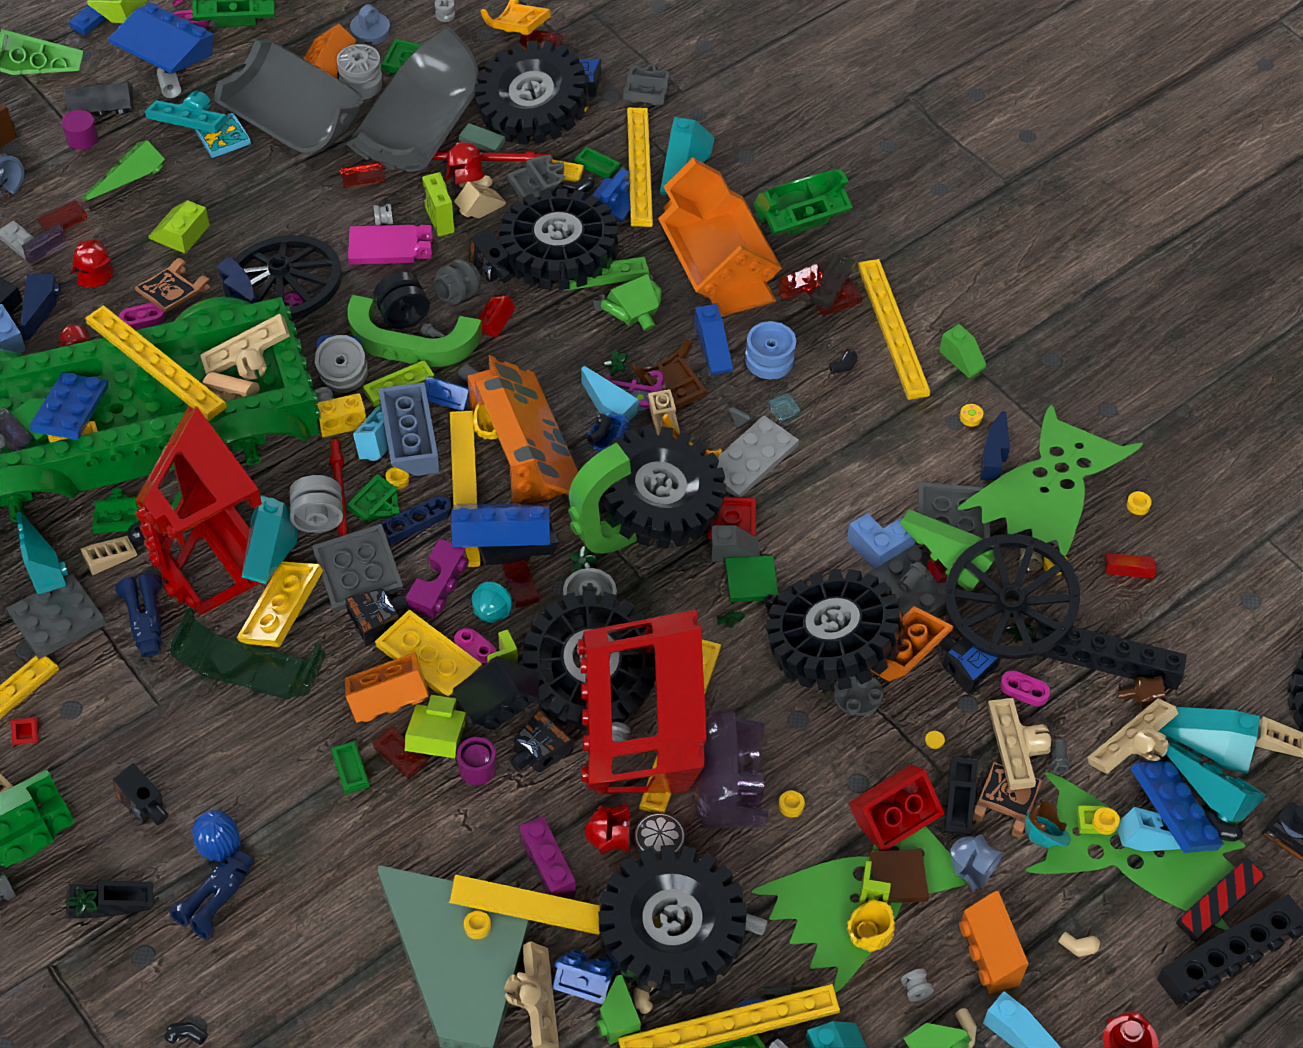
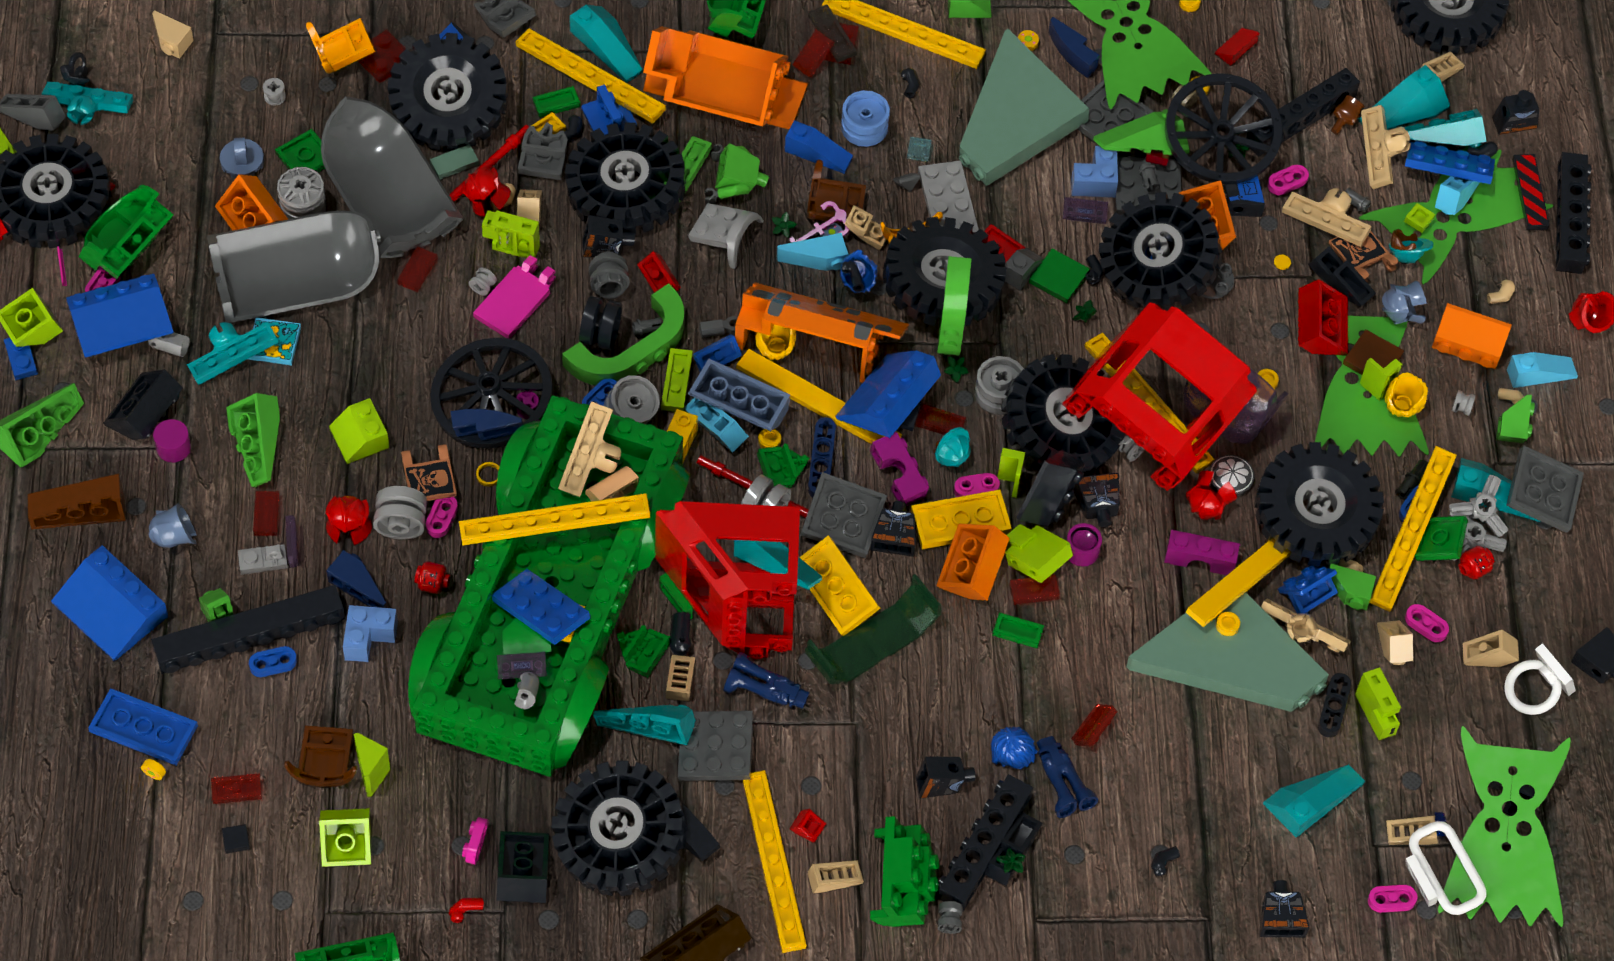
camera: 55 degrees left, 5 degrees up
(28, 871) = (1009, 790): none -> black brick
(115, 285) = (400, 512): none -> light grey wheel
(296, 885) = (1094, 725): none -> clear red plate
(573, 322) = (723, 228): none -> light grey piece
(837, 555) = (1085, 210): none -> clear purple tile
(882, 448) = (1017, 113): none -> sand green slope
(1105, 820) = (1431, 209): yellow tile -> none

